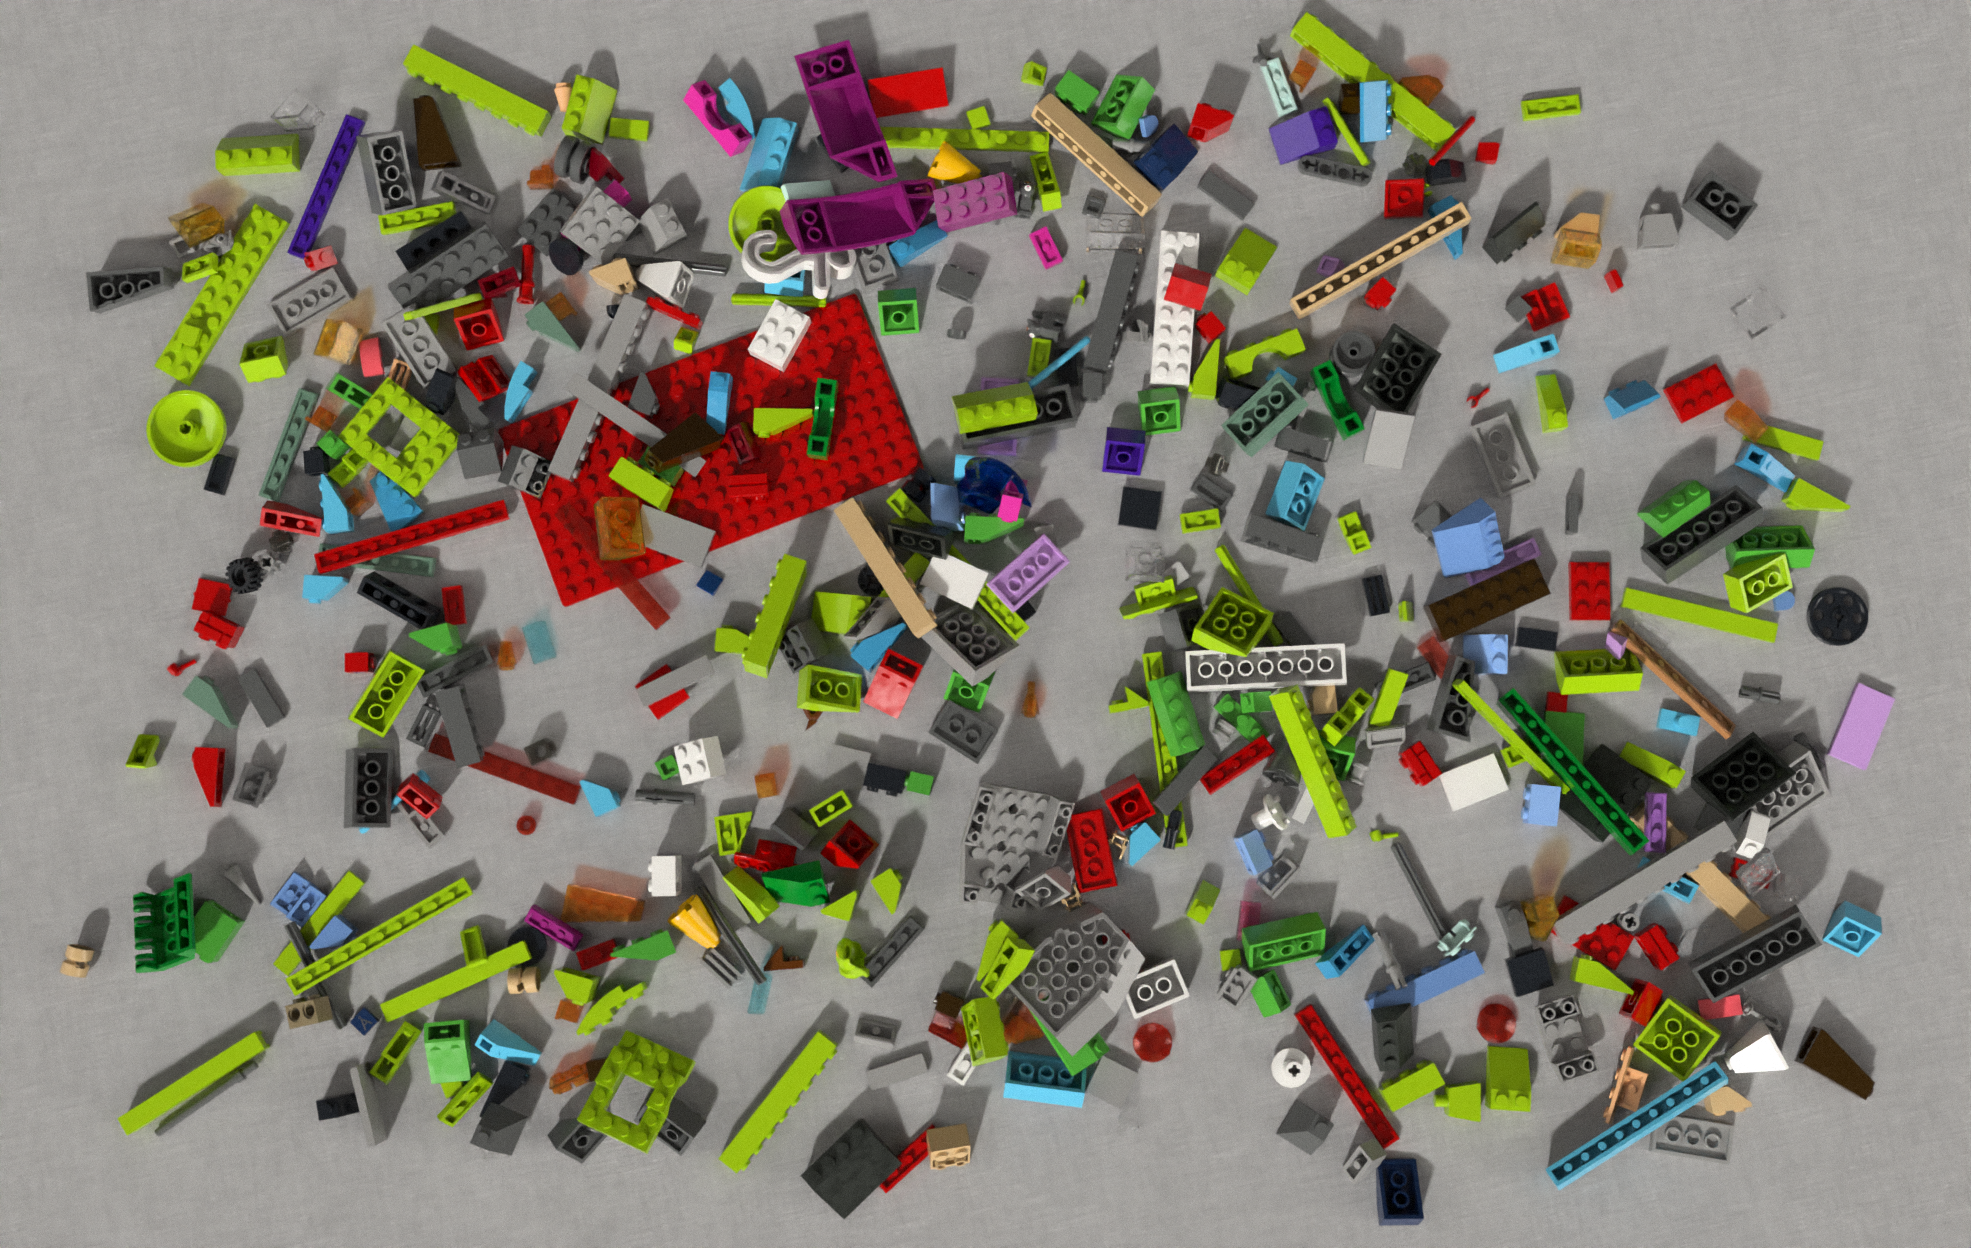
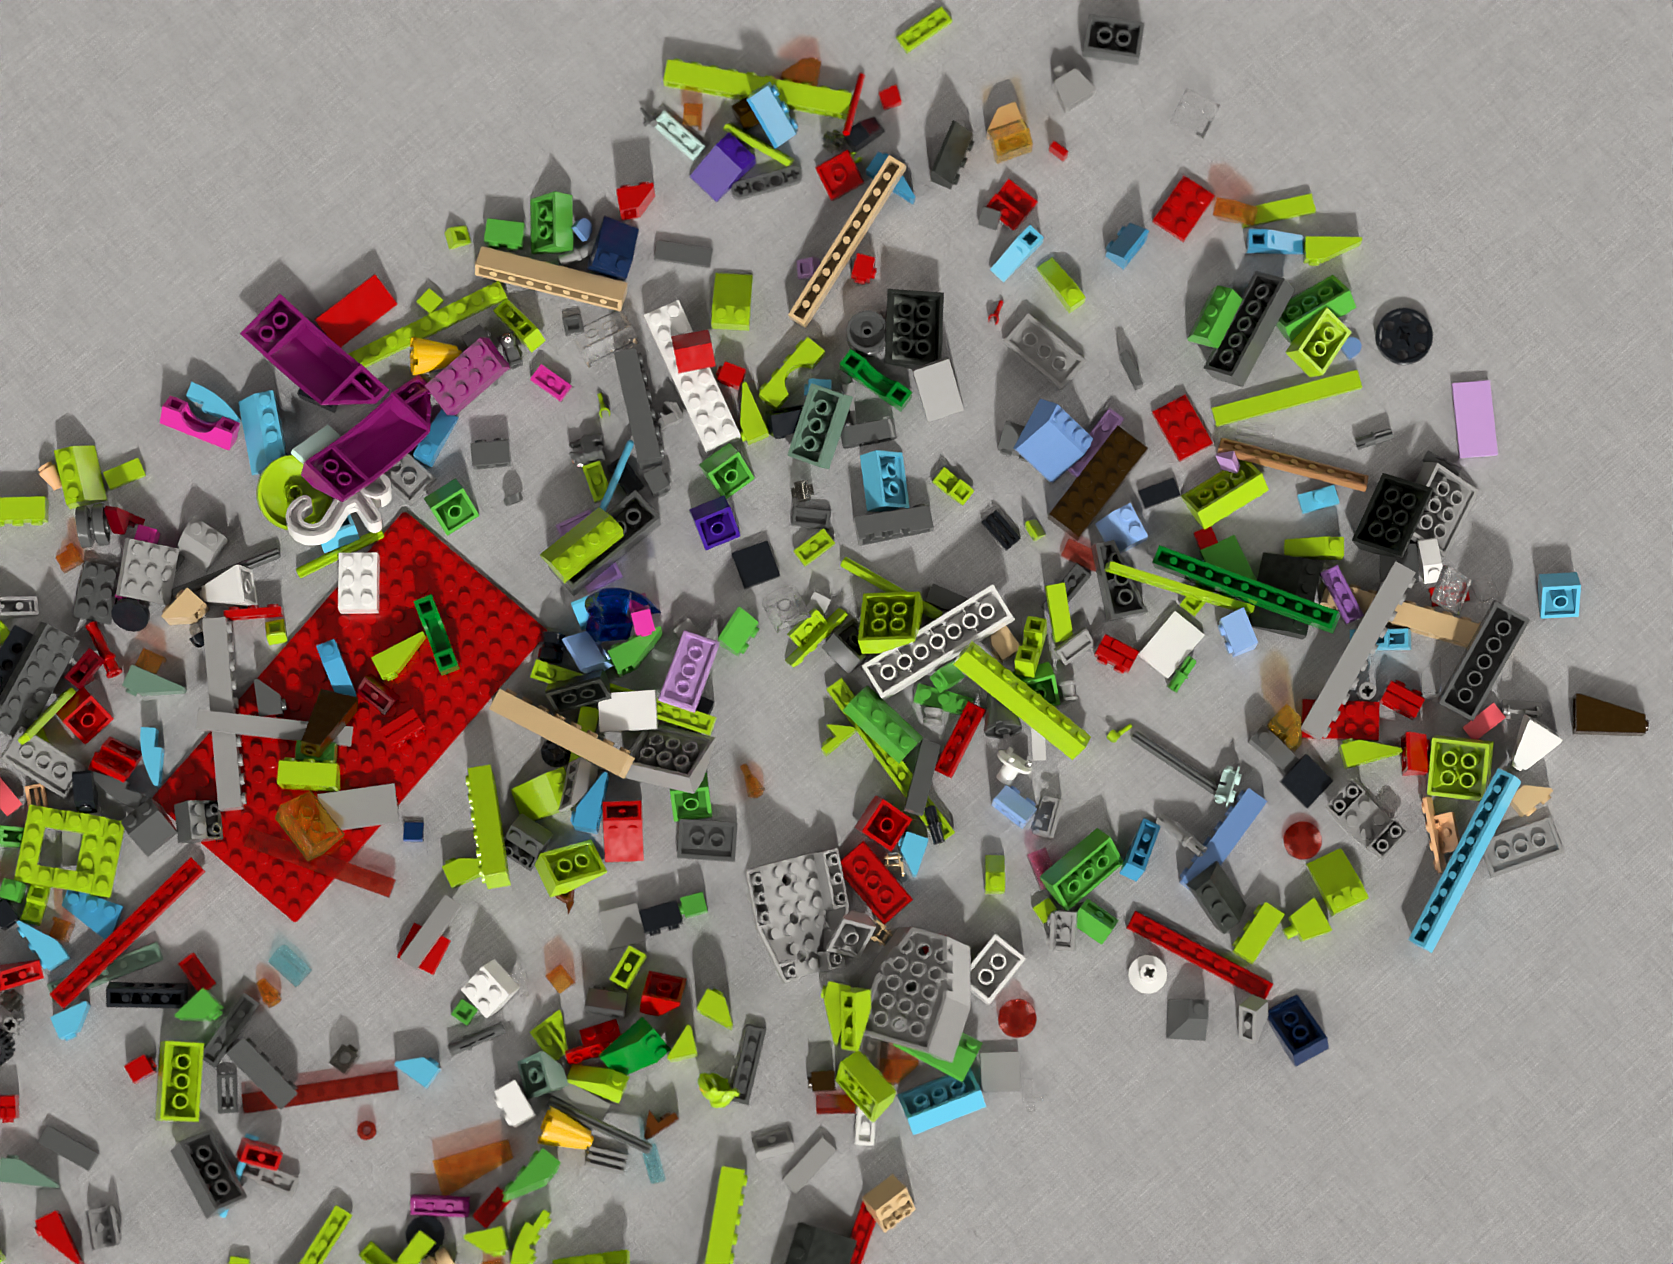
camera: 30 degrees left, 5 degrees down
(703, 862) = (541, 1075): none -> sand green slope
(1091, 561) = (738, 632): none -> bright green slope
(1468, 813) = (1181, 674): none -> bright green axle

